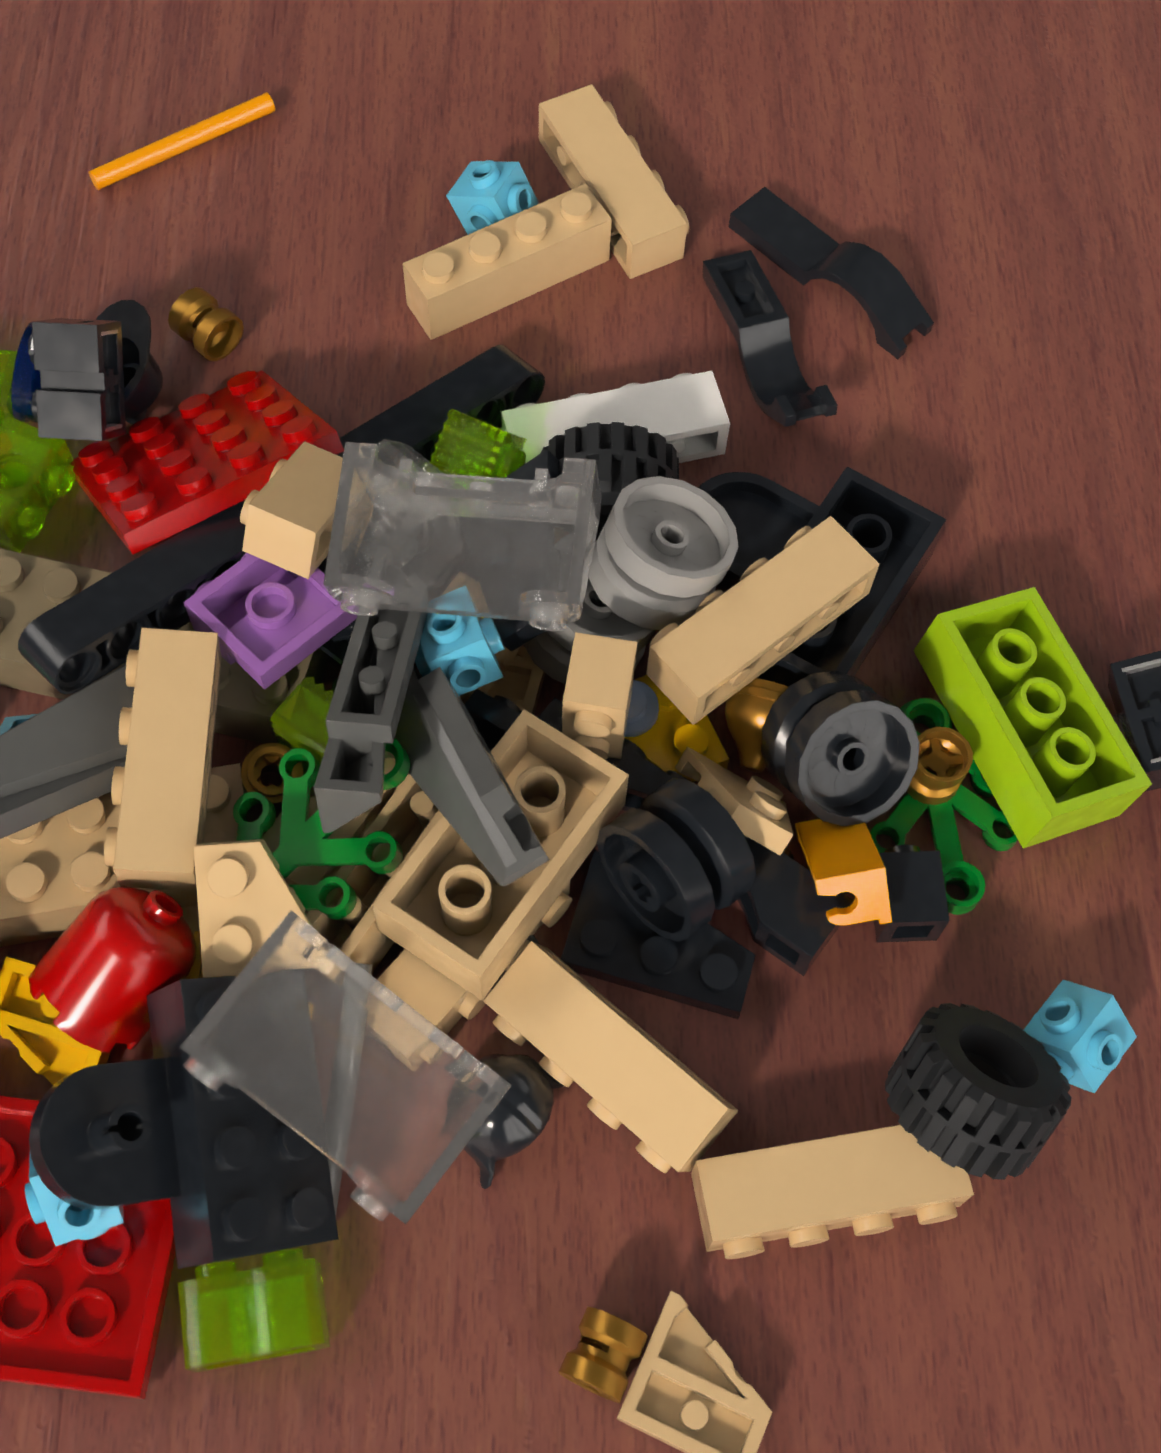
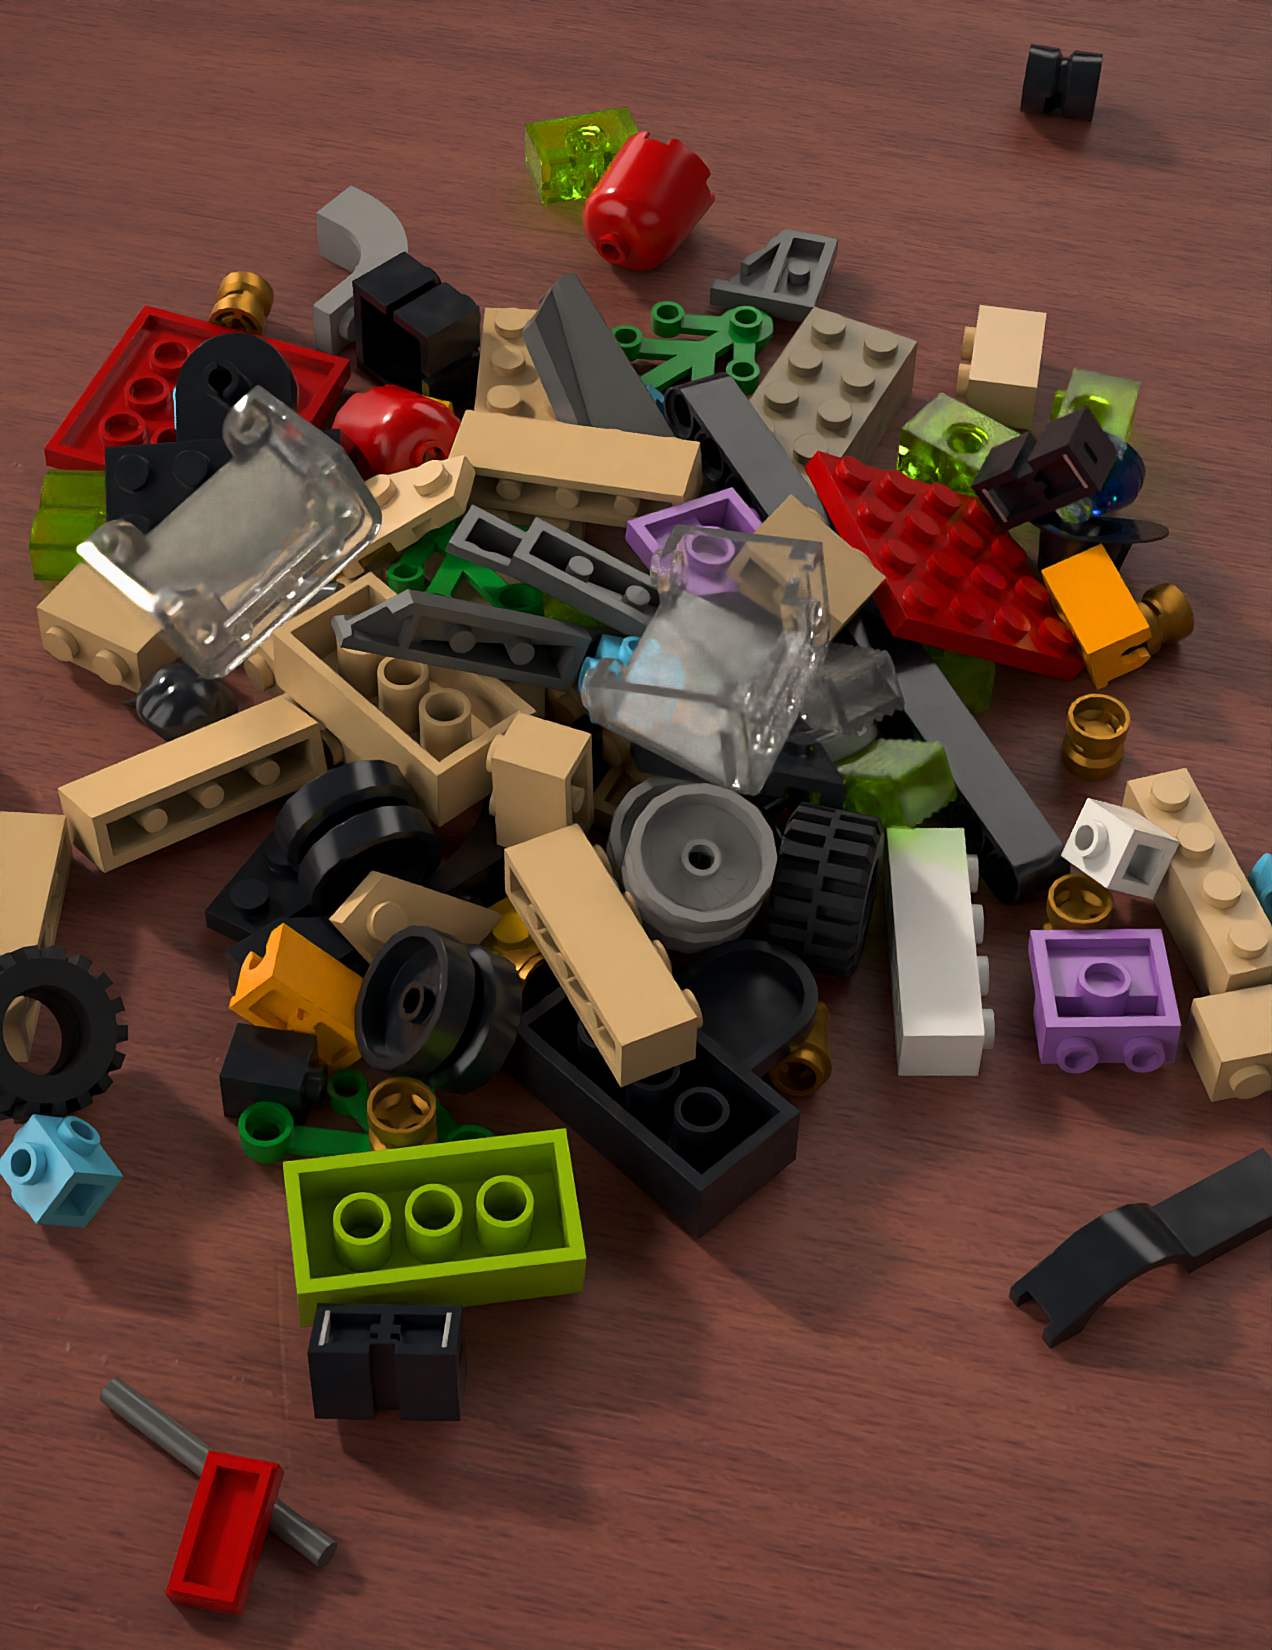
camera: 105 degrees right, 15 degrees down
(213, 351) = (1099, 613): none -> light orange hinge
(352, 348) = (1095, 737): none -> pearl gold wheel
(408, 1256) = (99, 632): none -> tan brick
(500, 299) = (1120, 848): none -> white brick
(553, 340) = (1078, 904): none -> pearl gold wheel
(633, 311) = (1103, 998): none -> medium lavender plate
(764, 340) = (1055, 1131): black piece -> none

